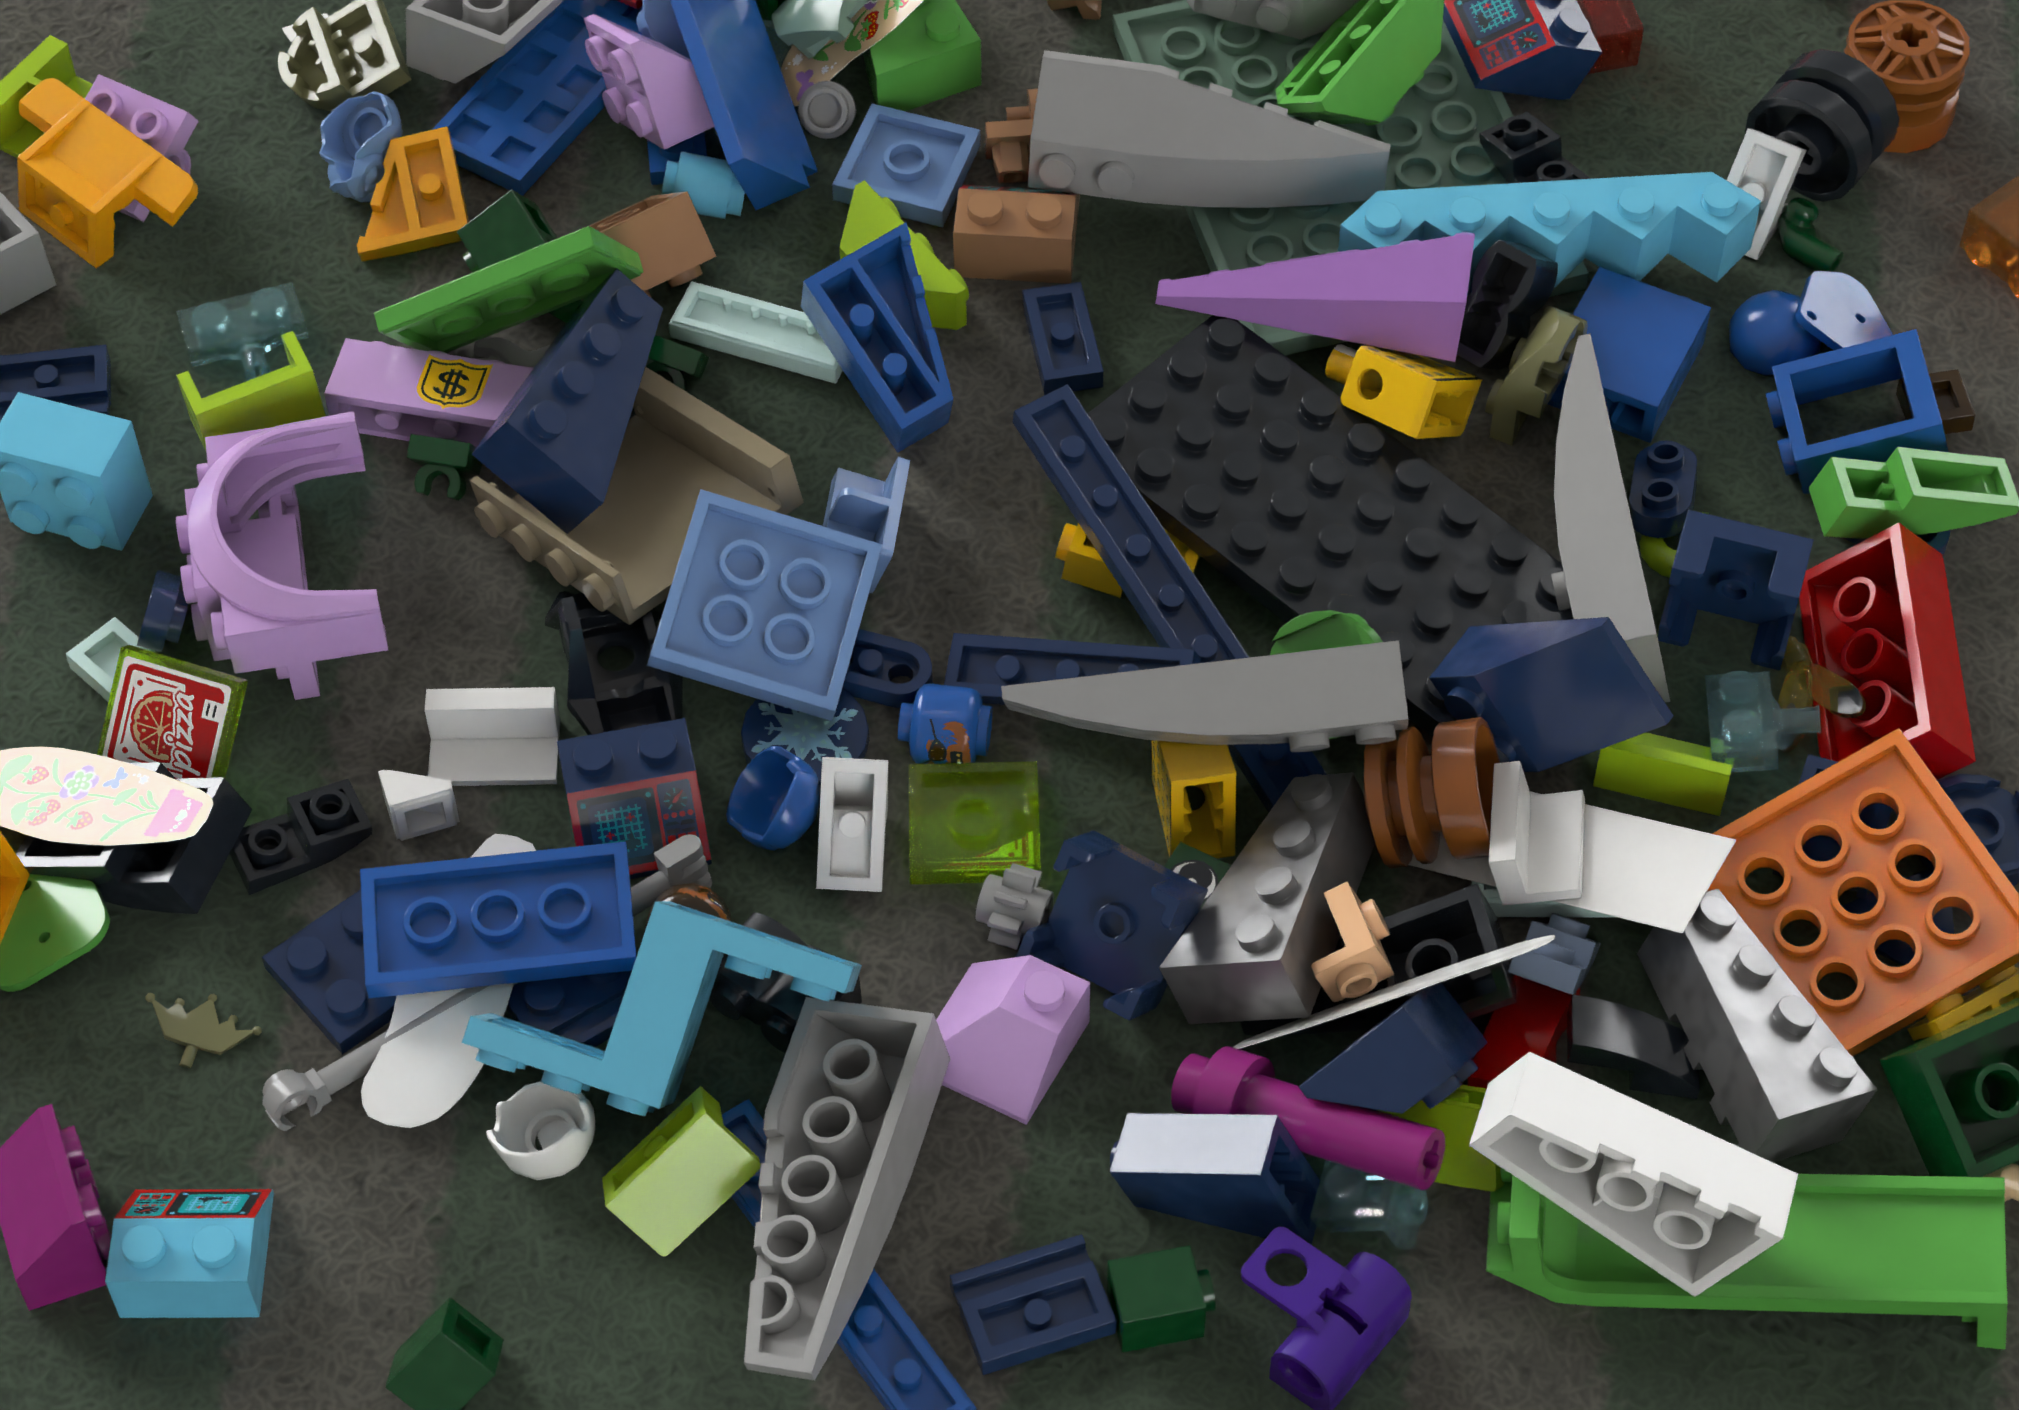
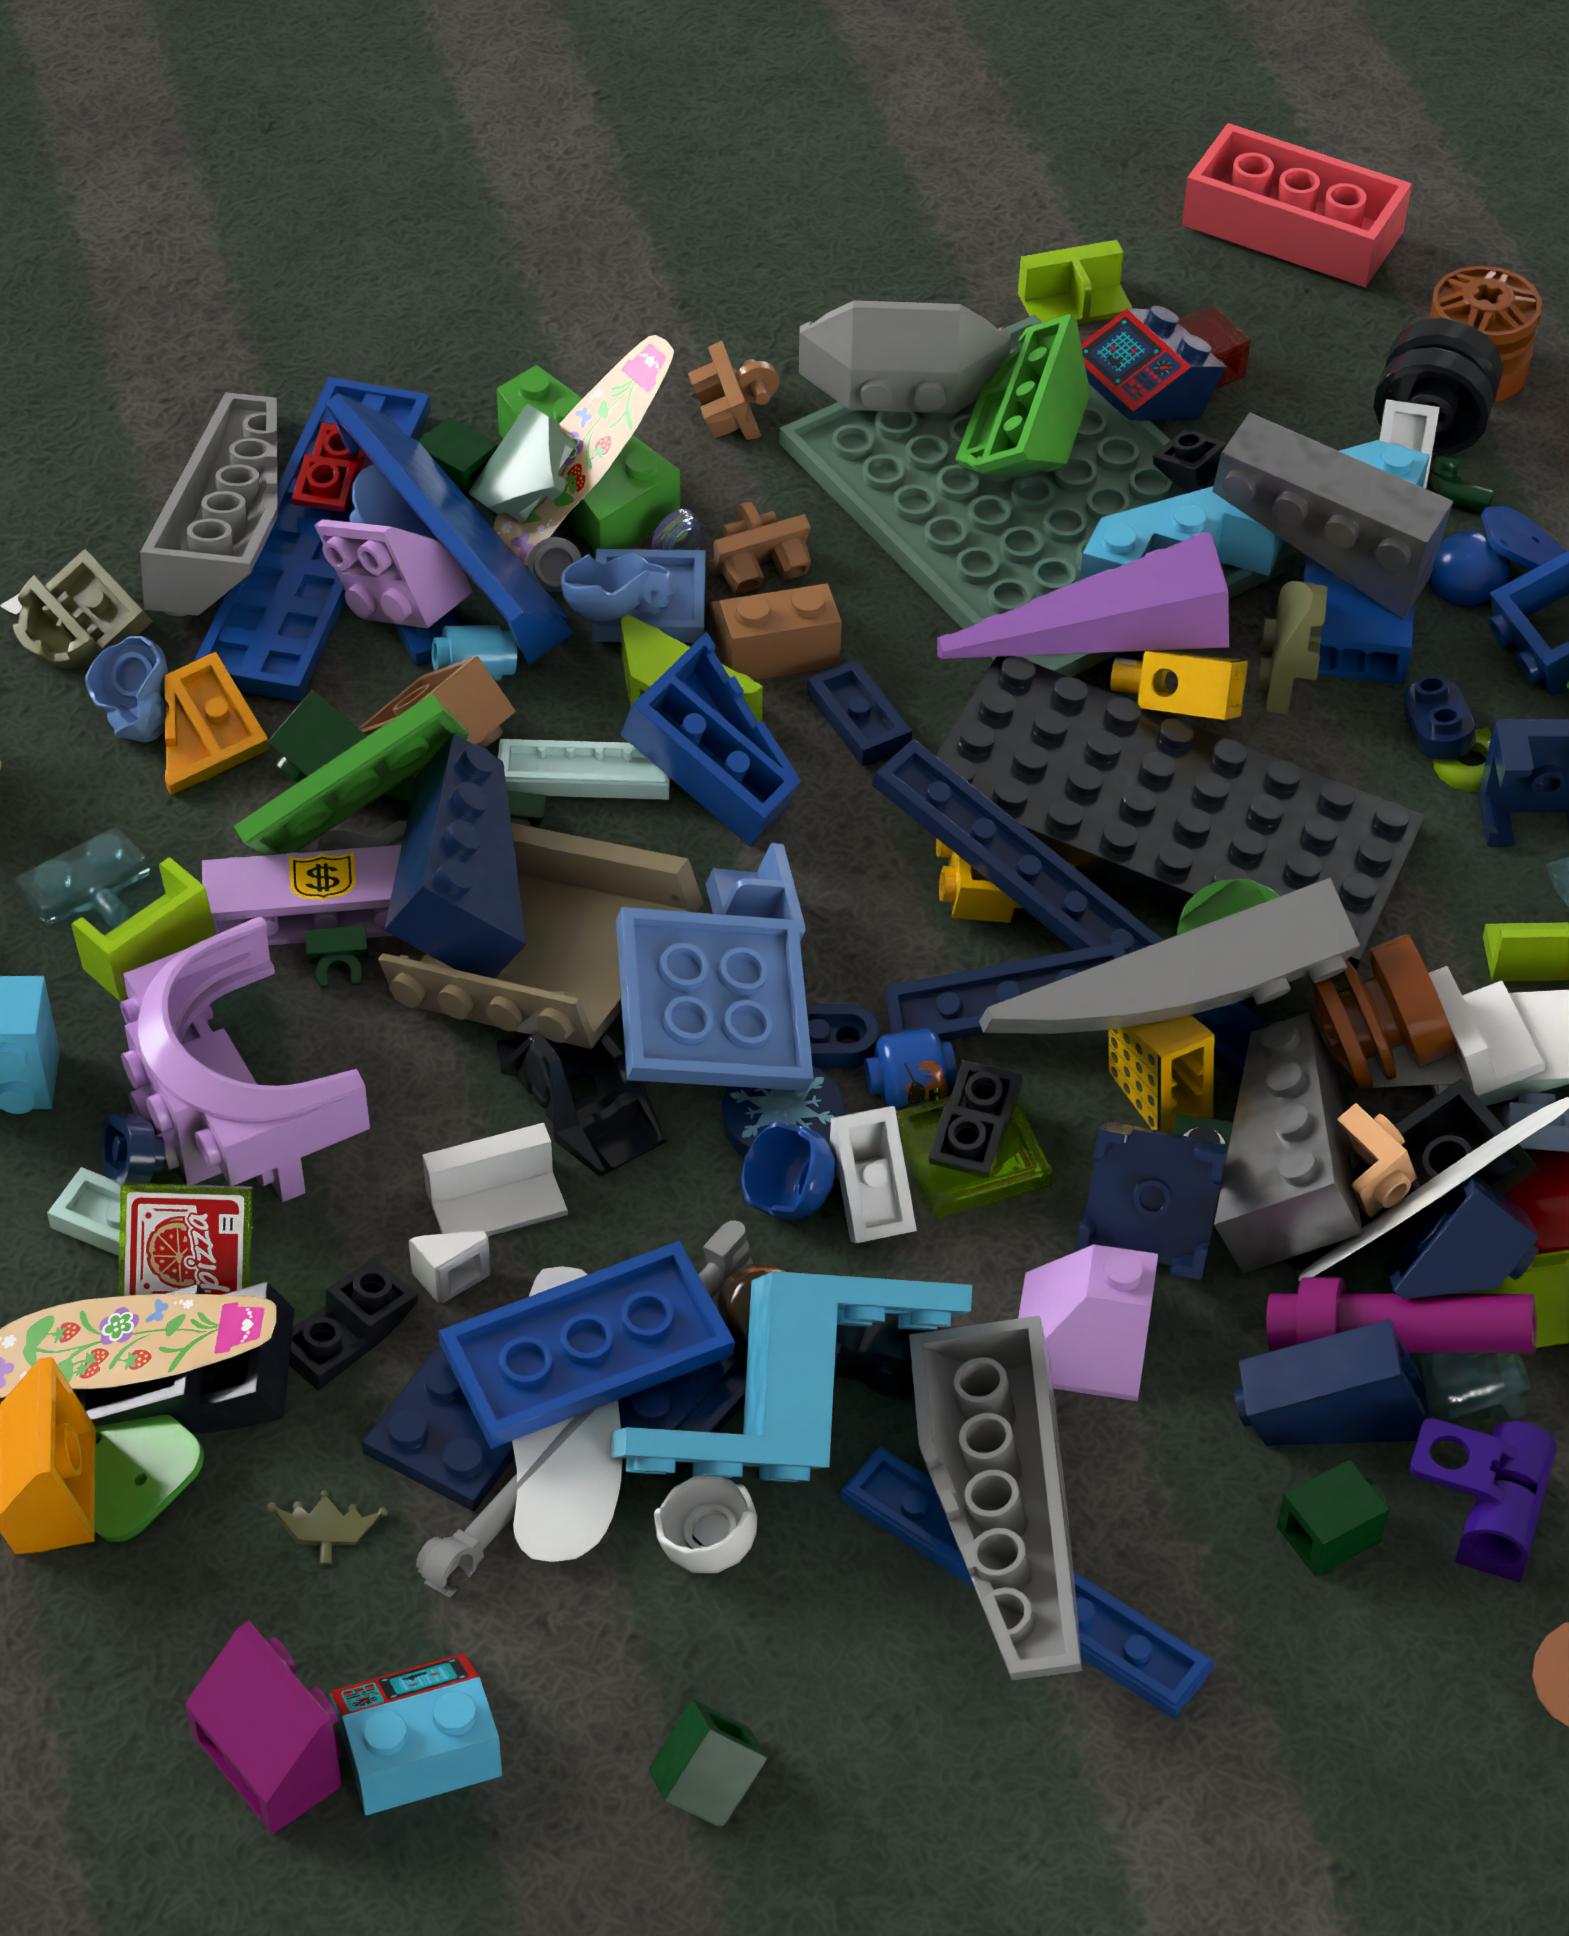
camera: 20 degrees left, 5 degrees down
(634, 789) = (652, 1196): dark blue slope -> none
(679, 1174) = (855, 1526): lime panel -> none
(859, 150) = (616, 587): none -> medium blue hair
(963, 104) = (679, 532): none -> clear light blue tile
(983, 796) = (976, 1119): none -> black slope
(1013, 905) = (1048, 1210): light grey gear -> none
(1032, 1304) = (1223, 1555): dark blue plate -> none
(1165, 141) = (900, 516): light grey wedge -> none
(1506, 291) = (1250, 573): black brick -> none
(1550, 689) = (1450, 893): dark blue slope -> none
(1594, 520) = (1426, 772): light grey wedge -> none
(1618, 241) = (1336, 510): none -> flat silver wedge

